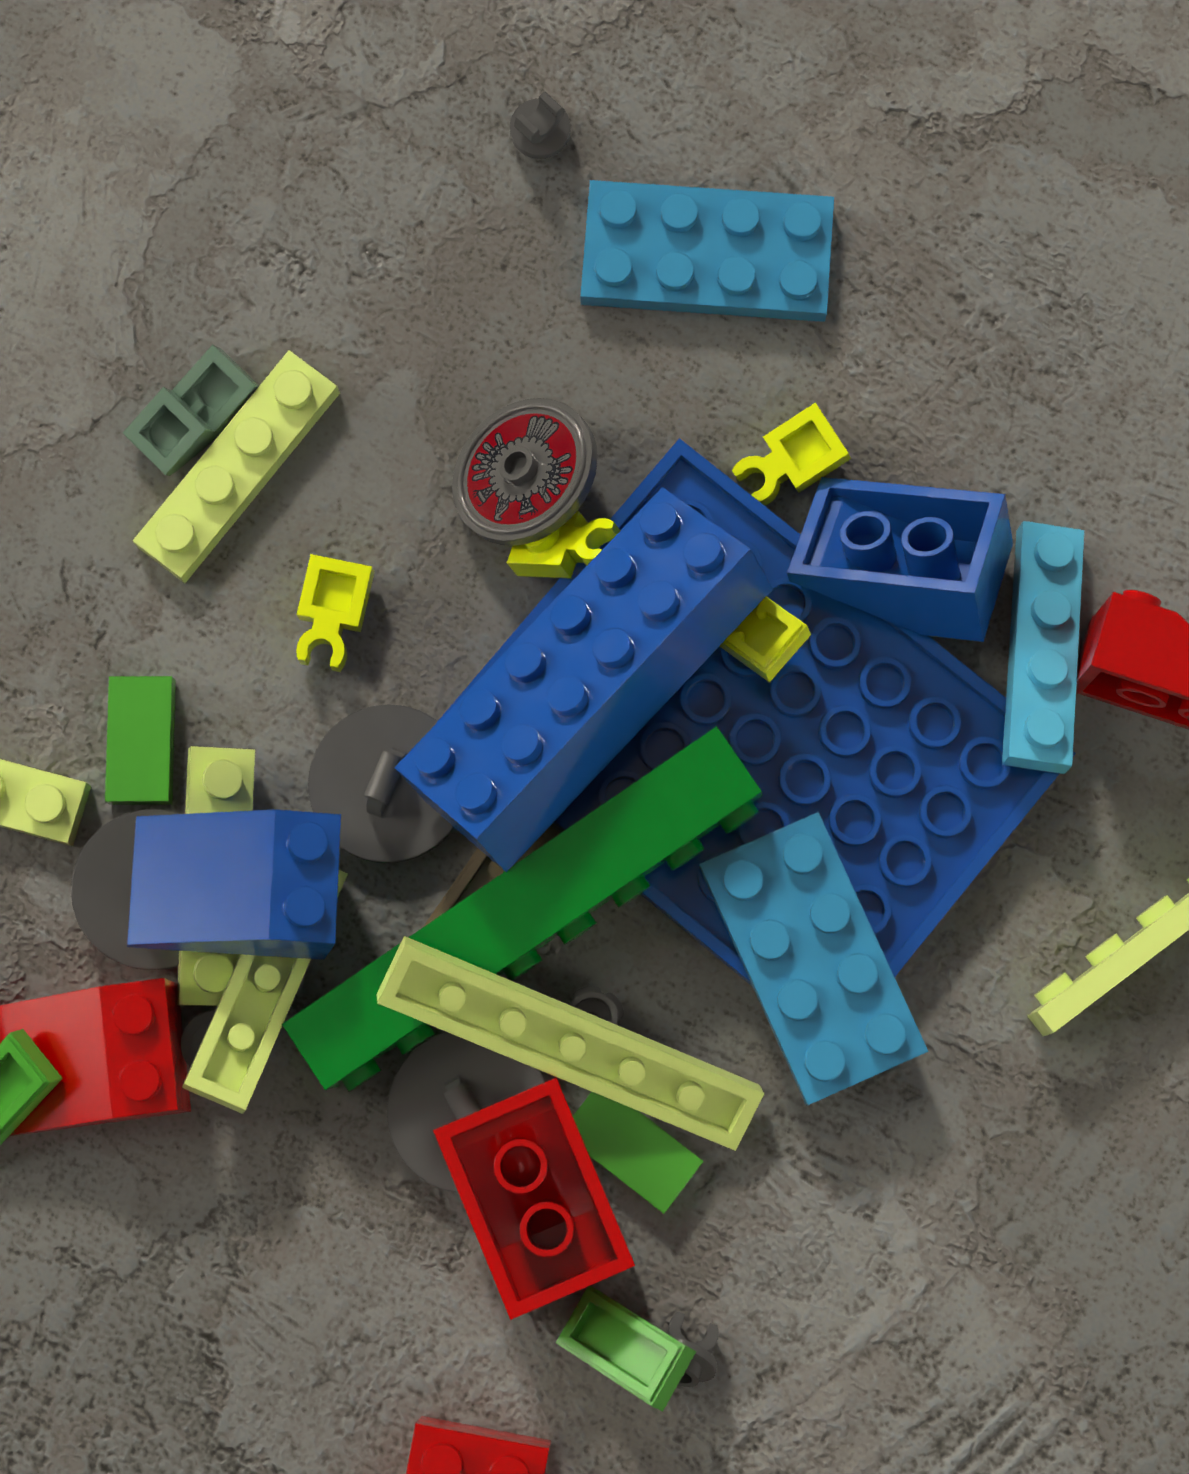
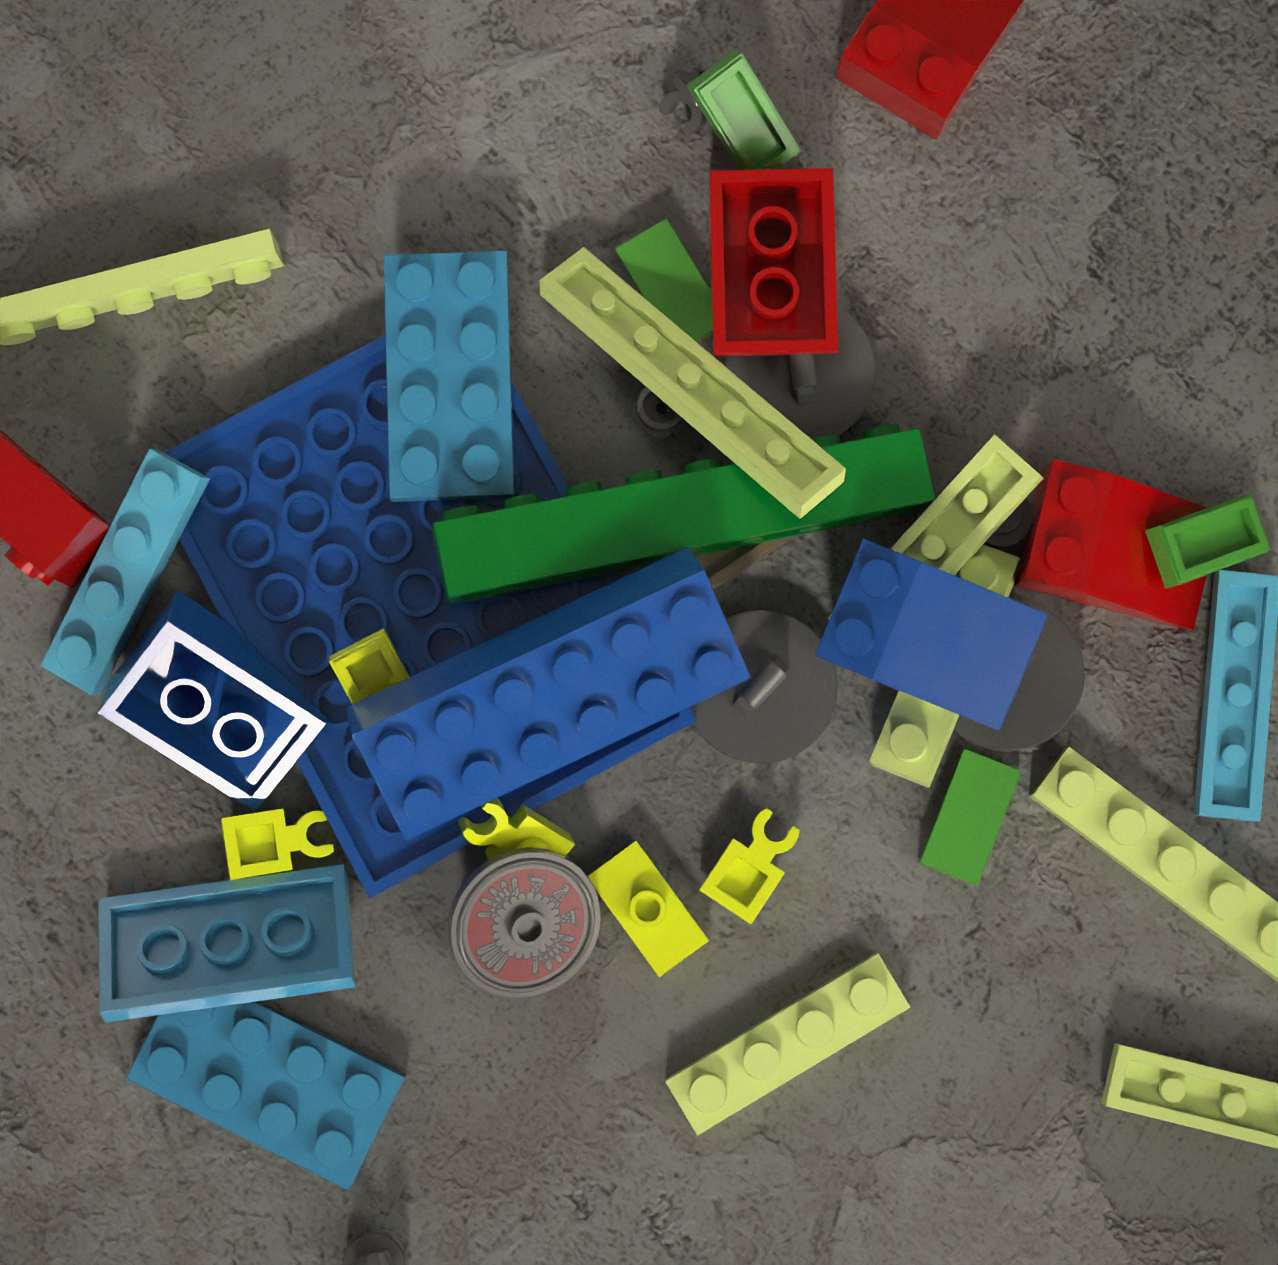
camera: 160 degrees left, 5 degrees up
(192, 414) = (809, 1113): sand green slope -> none
(415, 536) = (647, 909): none -> neon yellow plate
(794, 344) = (225, 943): none -> dark azure plate

